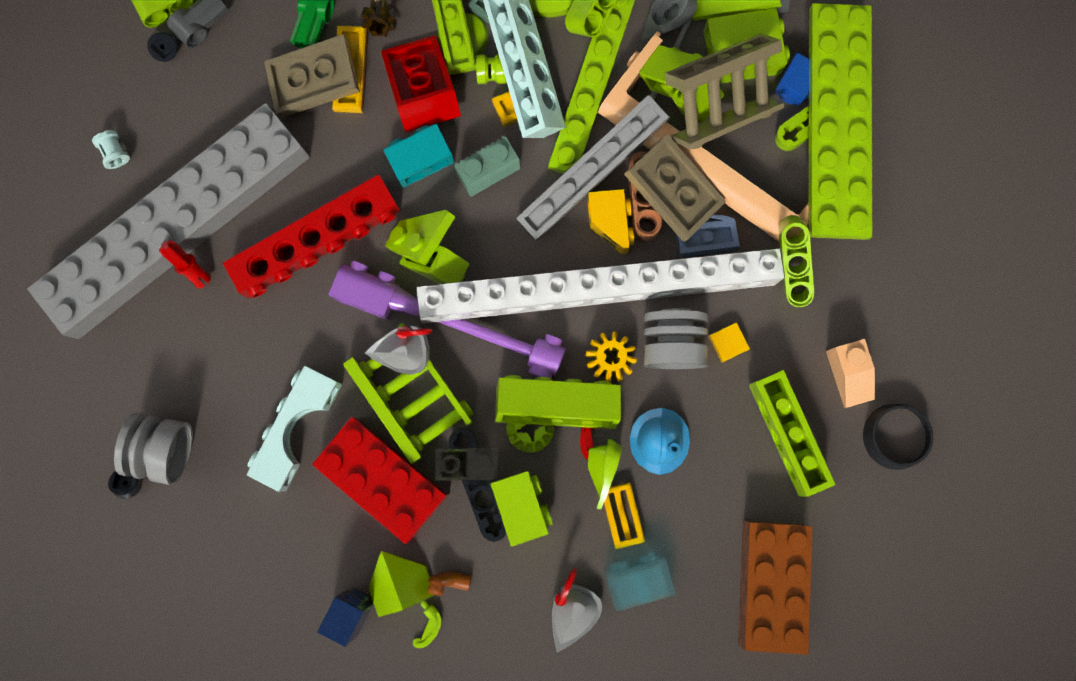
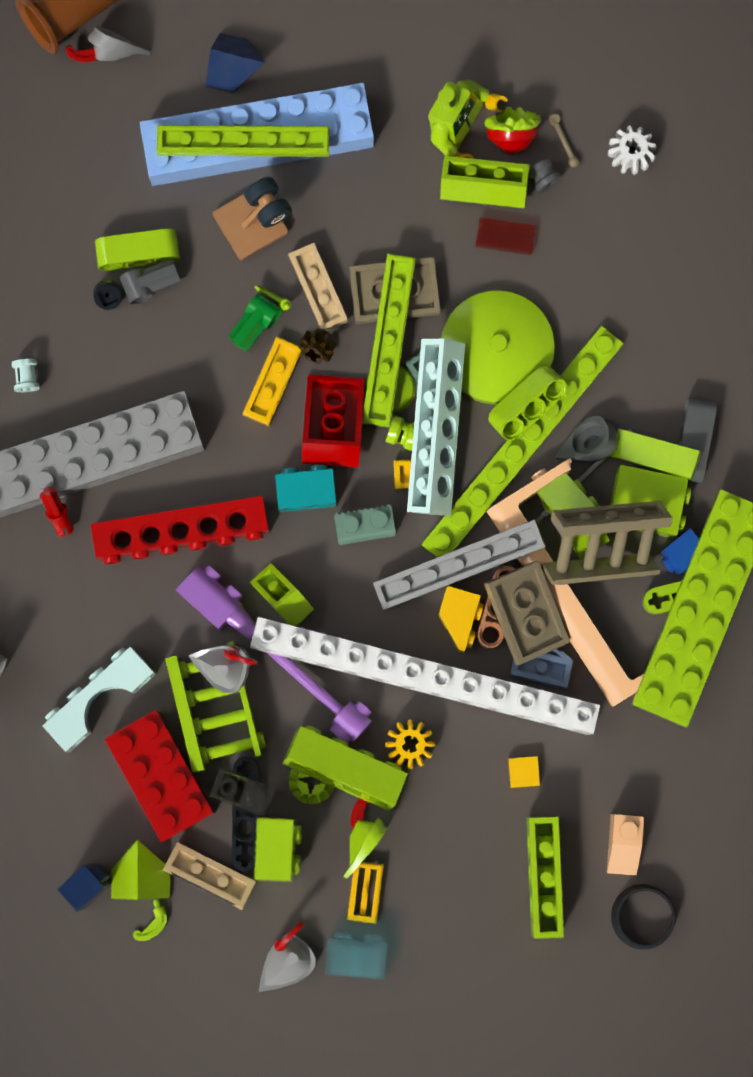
camera: 15 degrees right, 0 degrees up
(311, 76) = (235, 378): dark tan plate -> none
(419, 236) = (278, 567): lime wing -> none
(448, 579) = (179, 887): dark orange arm -> none
(465, 558) = (209, 875): none -> tan plate
(660, 441) = (425, 837): dark azure helmet -> none
(675, 339) = (473, 751): light grey wheel -> none
(775, 587) = (476, 1008): dark orange brick -> none
(798, 274) = (604, 733): lime beam -> none

